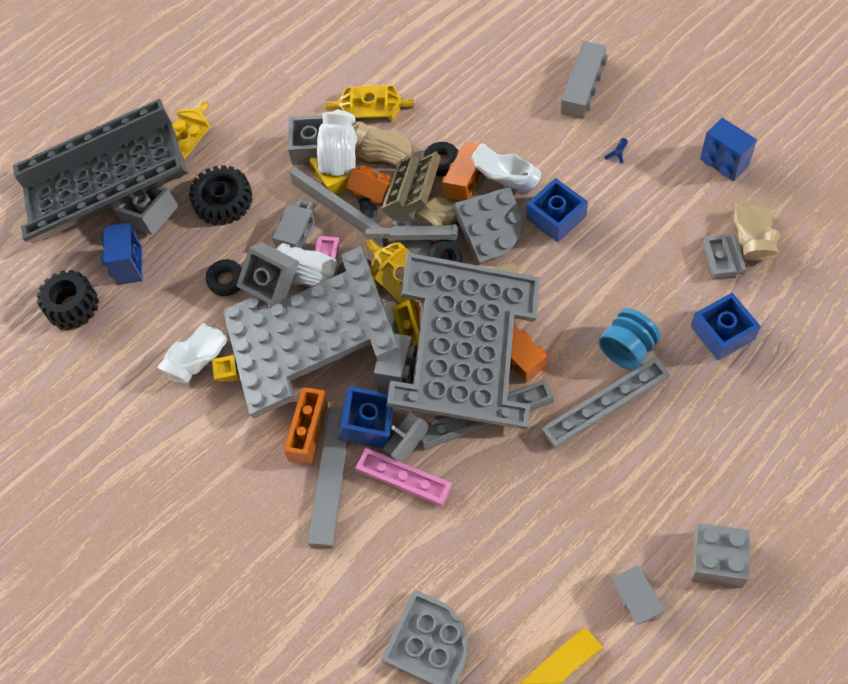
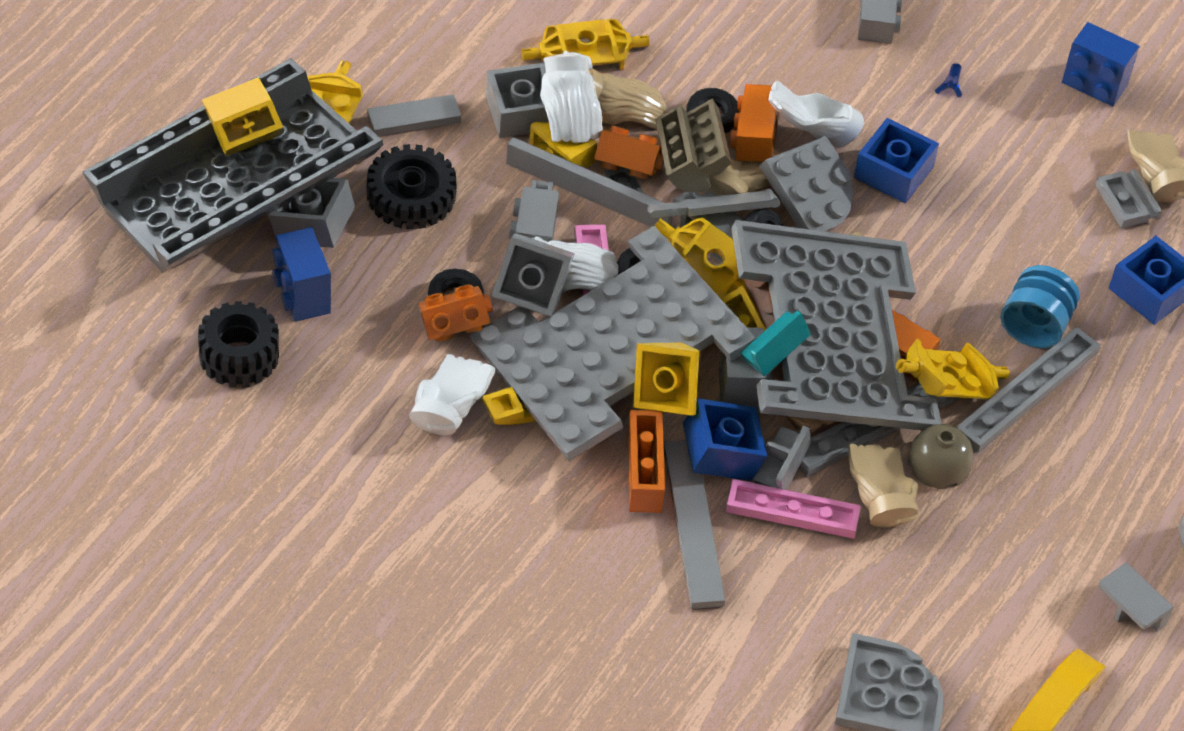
camera: 25 degrees left, 10 degrees down
(111, 138) = (243, 116): none -> yellow slope
(213, 293) = (455, 312): none -> orange brick
(241, 143) = (414, 115): none -> light grey tile
(328, 367) = (666, 377): none -> yellow slope
(409, 353) = (776, 342): none -> teal panel
(473, 467) = (883, 484): none -> tan hair
(525, 449) = (941, 456): none -> dark tan cylinder
(562, 382) = (953, 372): none -> yellow plate

